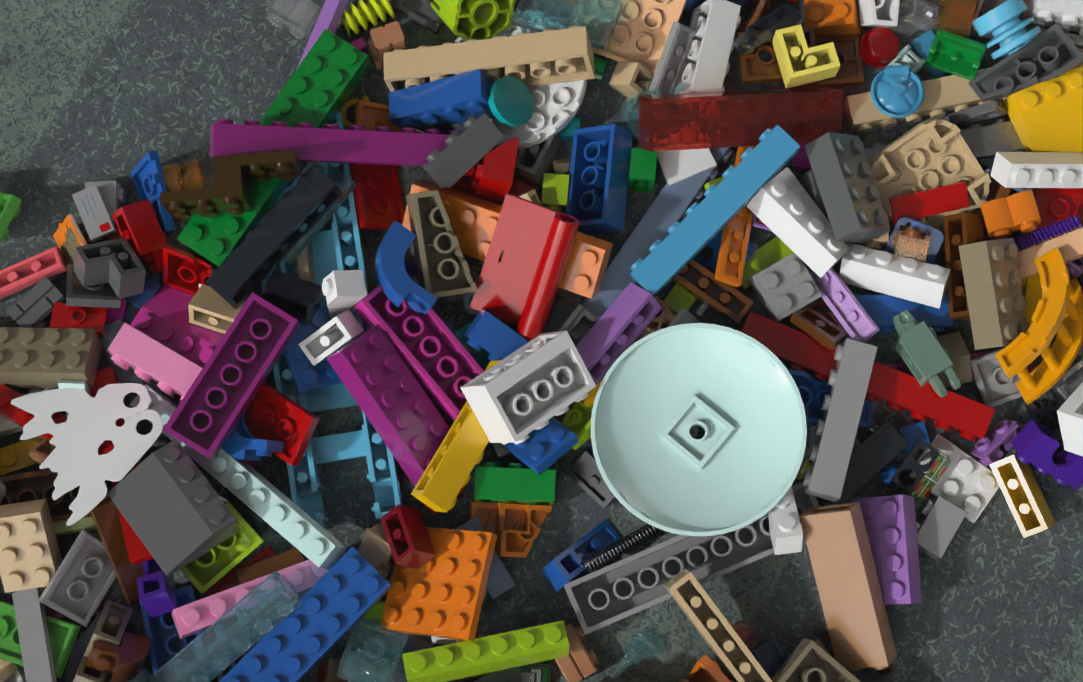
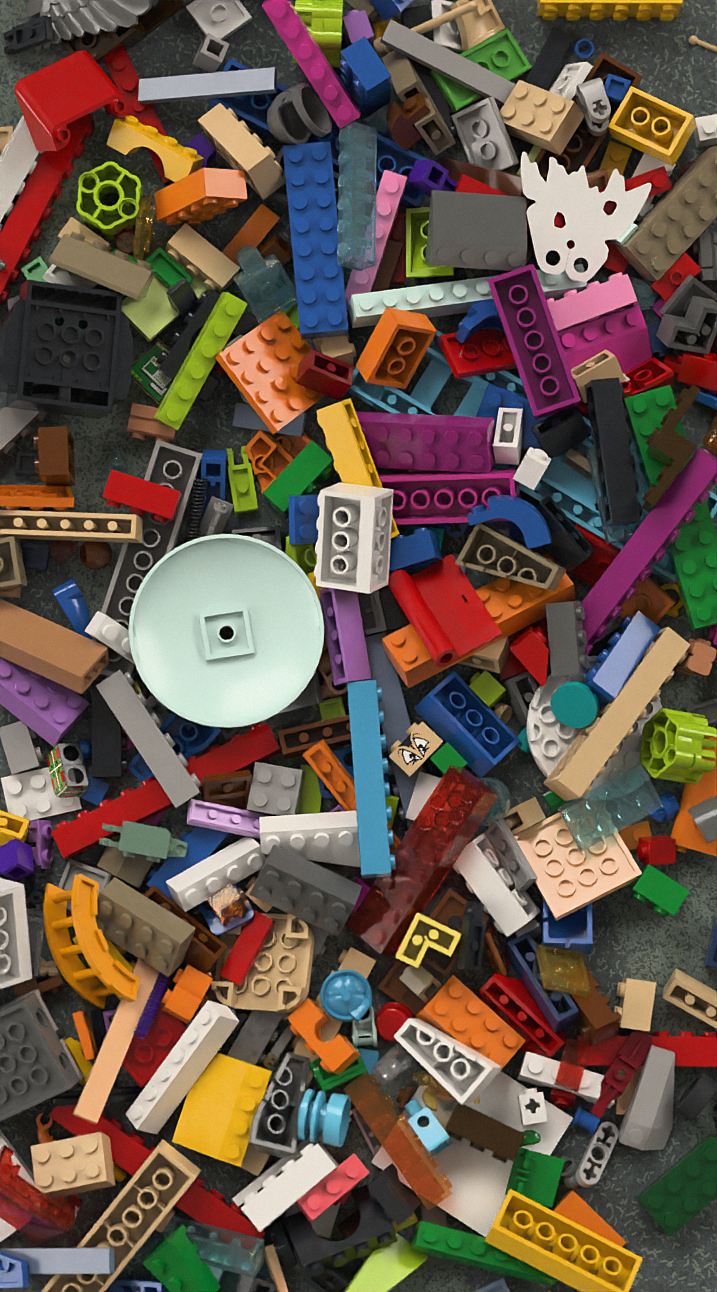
camera: 130 degrees right, 5 degrees up
(334, 493) = (396, 348): none -> orange brick
(380, 213) = (567, 542): none -> black brick
(557, 534) = (242, 483): none -> lime hinge
(610, 528) = (215, 517): none -> light grey hinge
(646, 602) = (141, 496): none -> red brick
(656, 201) = (415, 748): none -> tan brick
(727, 602) = (95, 554): none -> reddish brown piece
(783, 583) = (74, 606): none -> blue piece
(840, 38) = (421, 982): none -> dark tan brick
(953, 61) = (308, 1022): none -> orange arch

